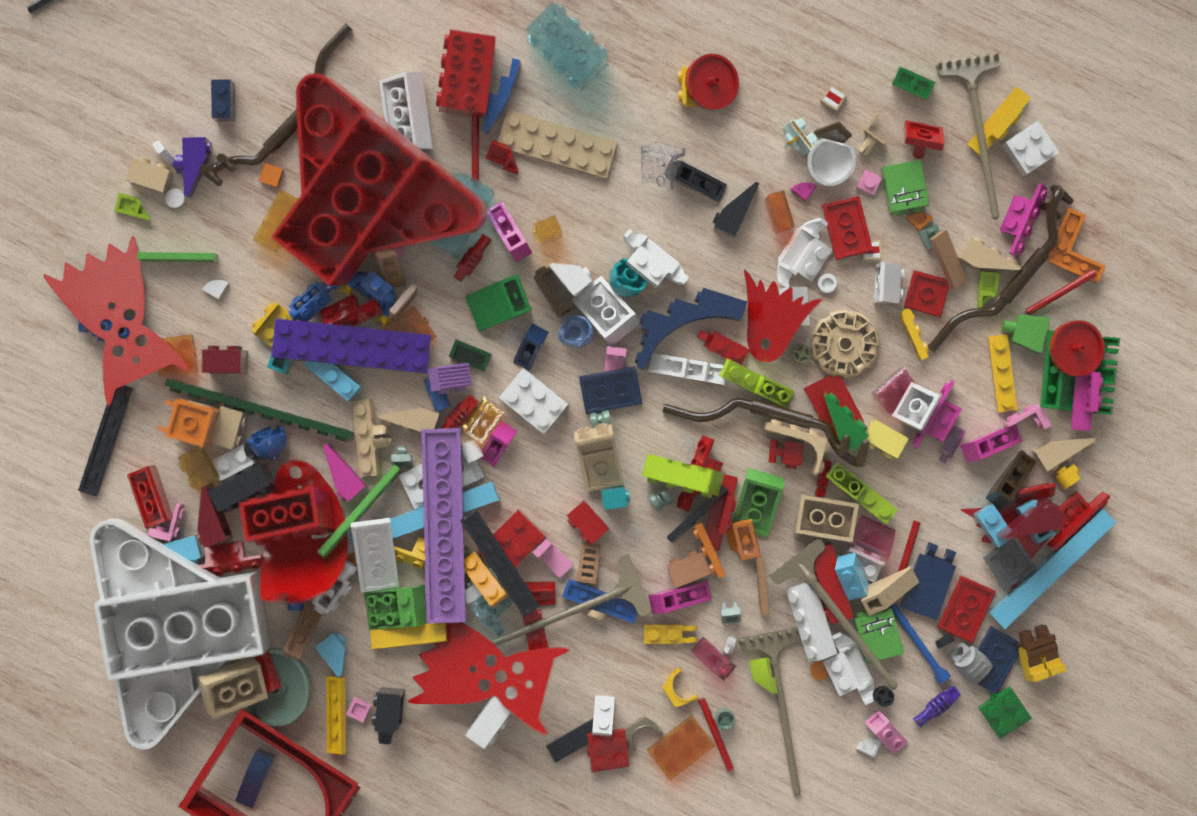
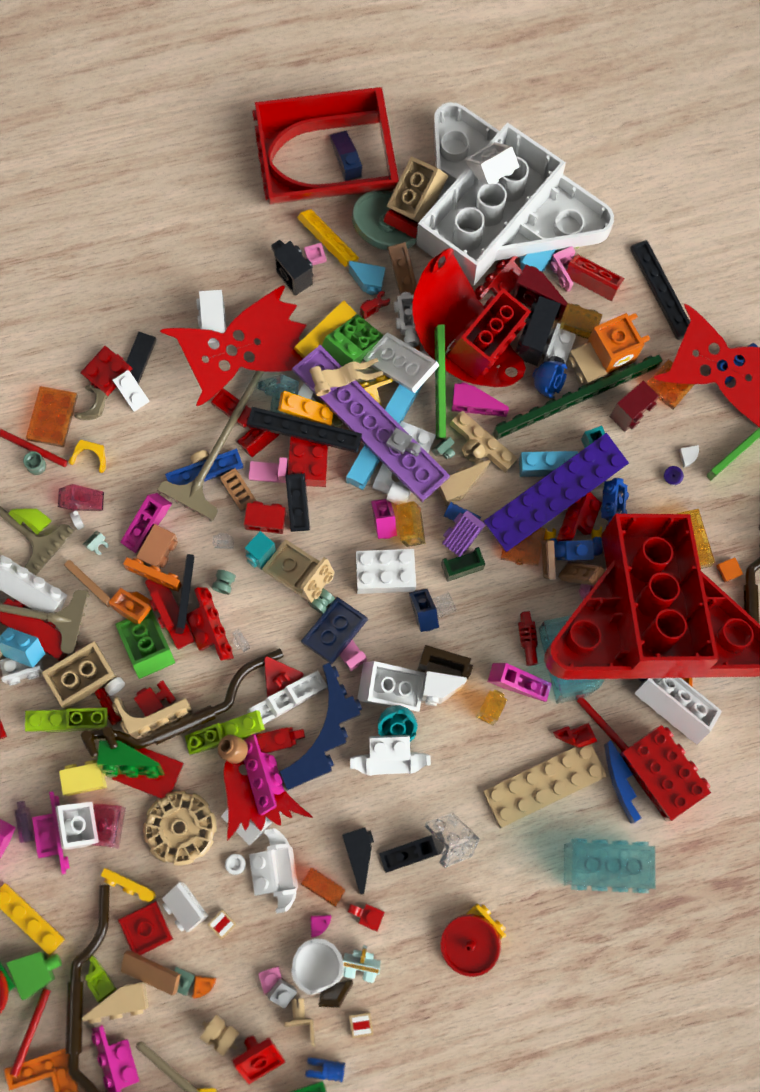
camera: 135 degrees right, 15 degrees down
(156, 652) = (493, 163): none -> white slope
(244, 282) = (673, 475): none -> dark purple tile
(265, 327) = (632, 472): yellow bracket -> none
(353, 624) = (372, 306): none -> red plate
(434, 581) = (340, 377): none -> tan flag
(435, 487) = (401, 441): none -> light grey plate
(461, 413) = (431, 516): red hinge -> none
(498, 303) = (477, 622): green slope -> none
(553, 512) = (297, 502): none -> black tile
(576, 332) = (399, 650): medium blue hair -> none
(667, 633) = (131, 490): yellow hinge -> none
(681, 391) = (279, 675): none -> red piece
(683, 475) = (221, 610): lime wedge -> none
(755, 328) = (262, 775): none -> dark pink bracket
(762, 364) = (232, 749): none -> medium nougat head
(764, 165) = (369, 916): none -> red plate
(801, 354) = (205, 787): olive wheel -> none
(806, 488) = (114, 686): none -> white tile
(847, 228) = (257, 924): red tile -> none
(869, 166) = (282, 993): none -> light grey plate
(874, 537) = (28, 693): clear pink slope -> none
(880, 86) = (331, 1069): none -> blue hinge
(905, 187) = (237, 1001): bright green brick -> none
(936, 176) = (219, 1035): none -> tan wheel

